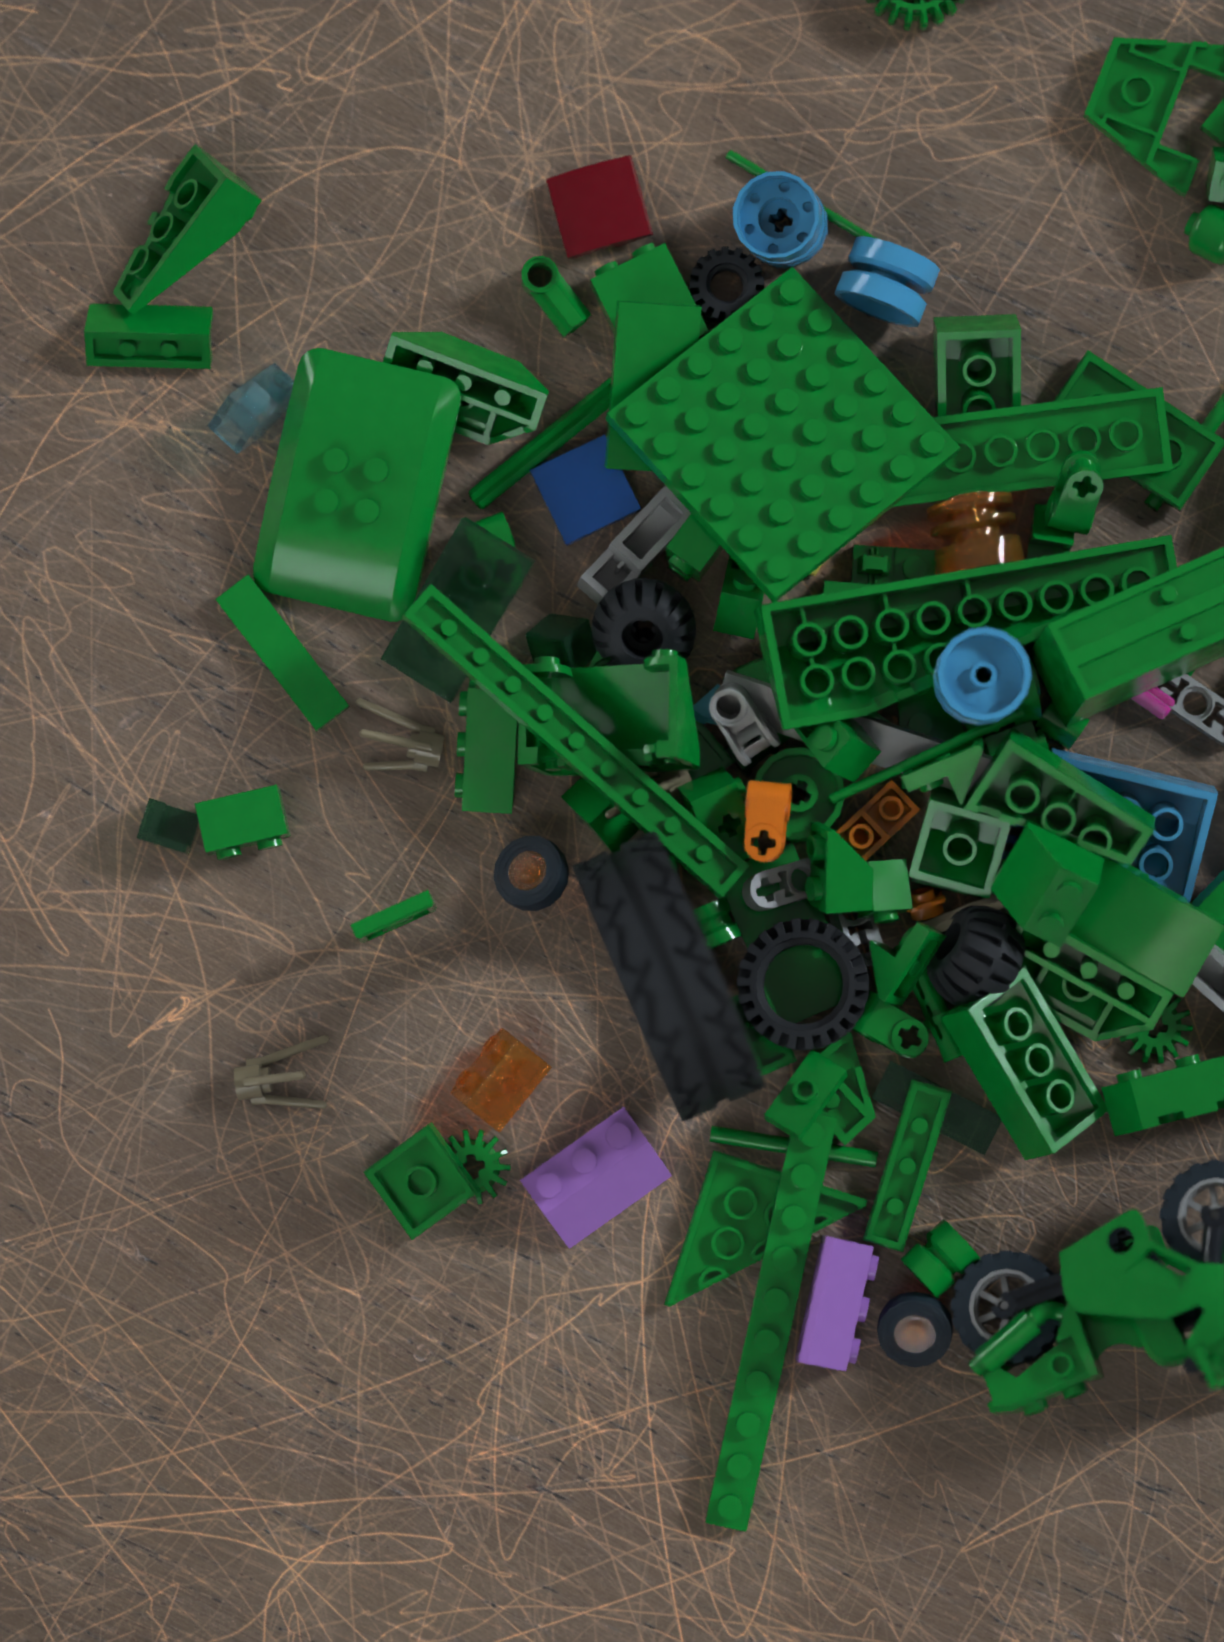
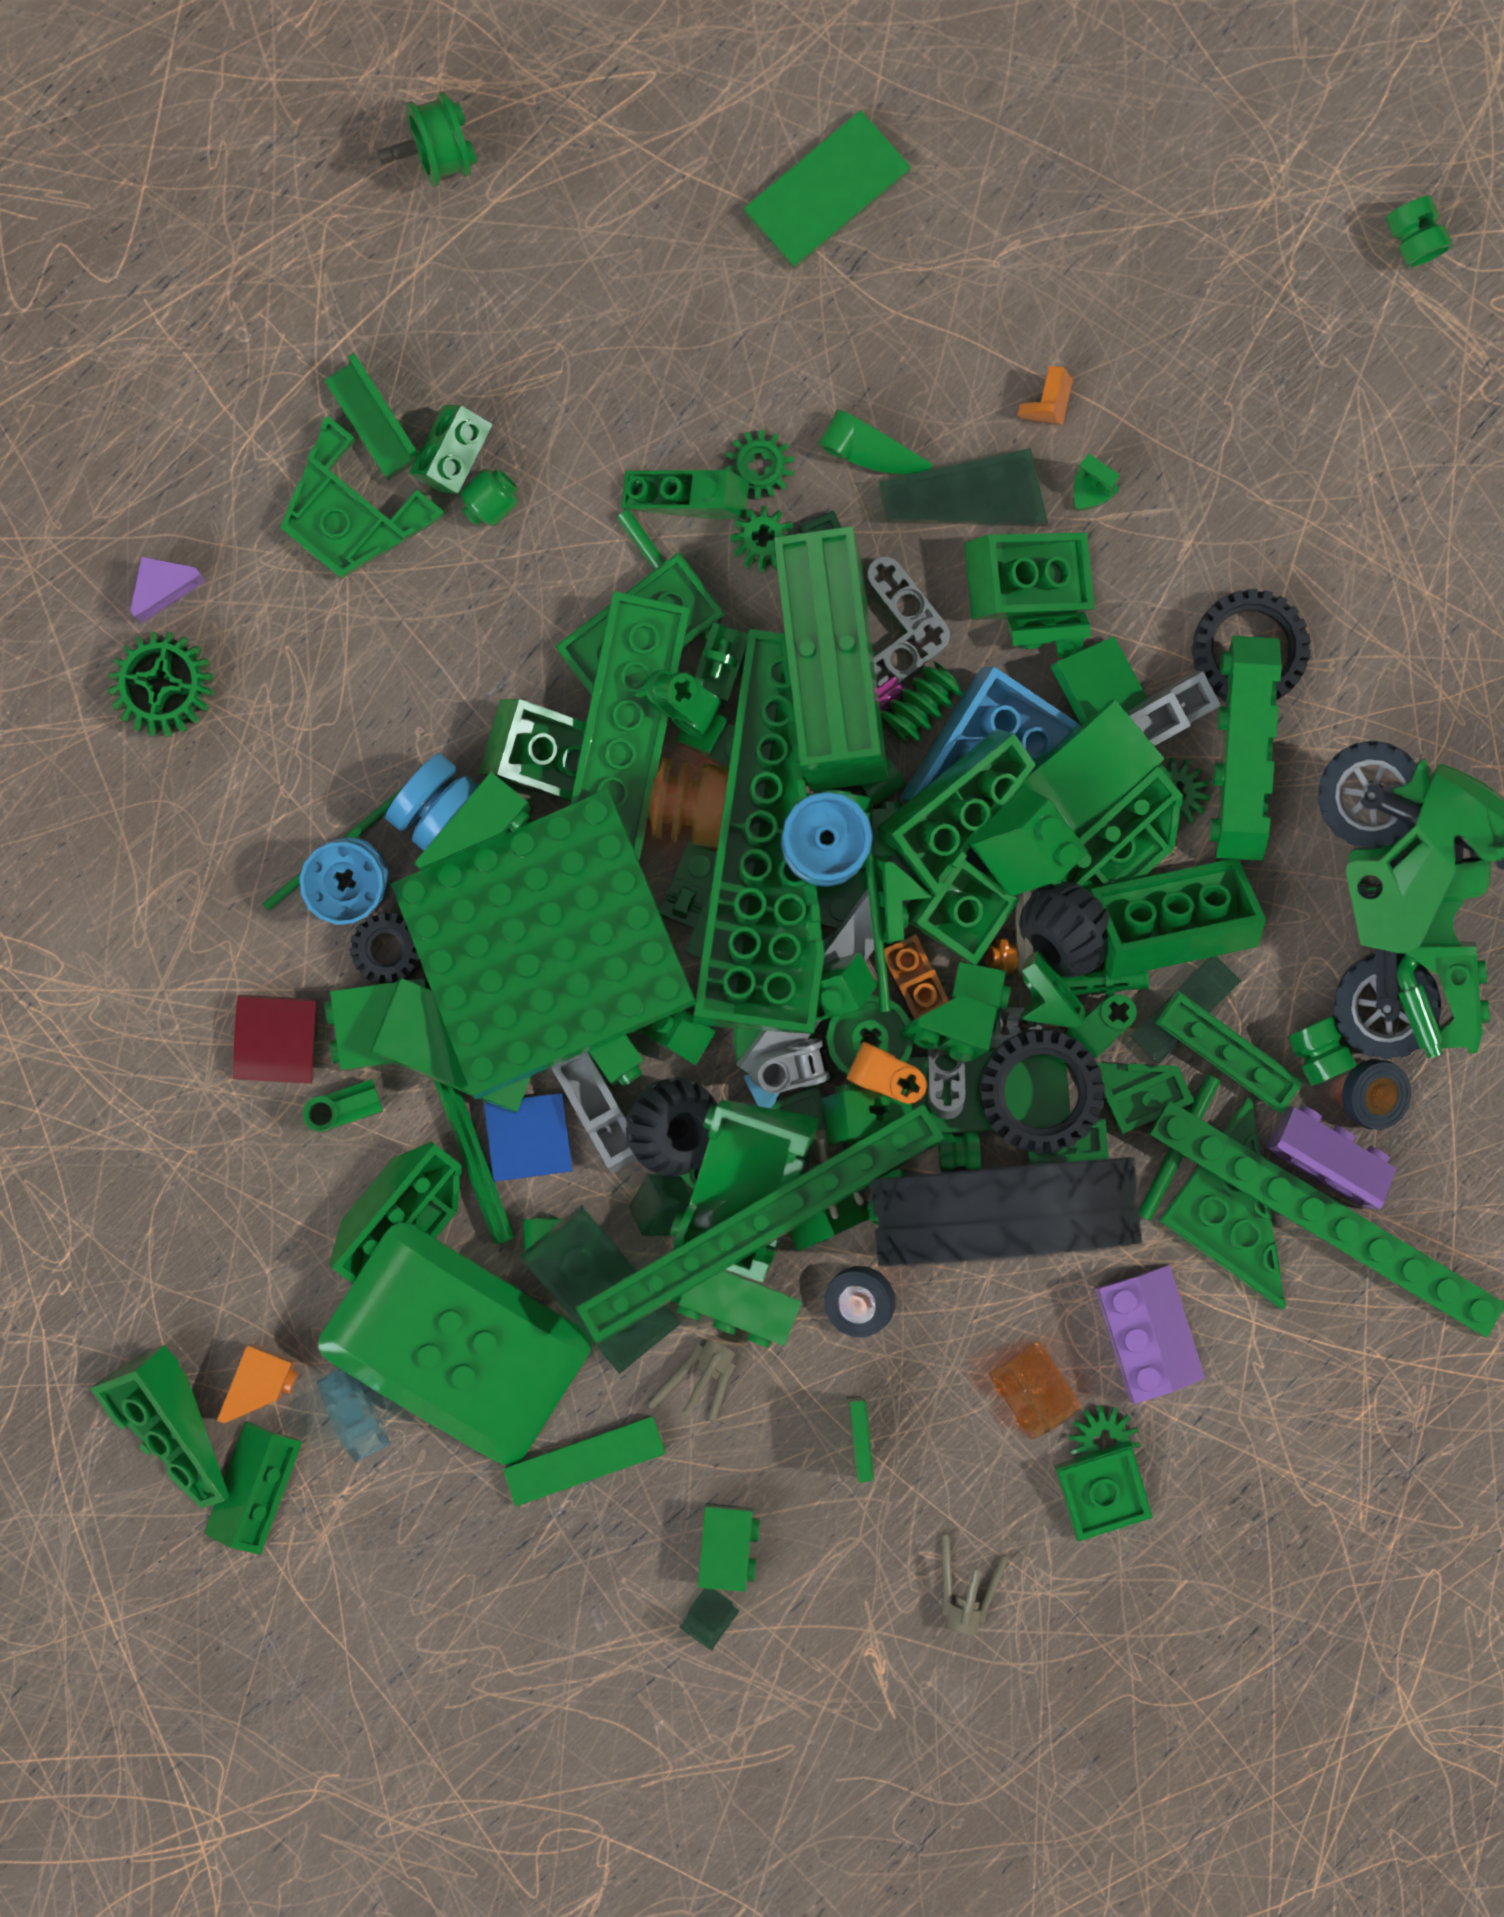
camera: 80 degrees left, 0 degrees up
(254, 304) = (258, 1382): none -> orange slope
(805, 1095) = (1141, 1122): green plate -> none
(887, 332) = (481, 819): none -> green slope
(1129, 520) = (721, 660): none -> green hips
(1156, 737) = (921, 703): none -> green piece

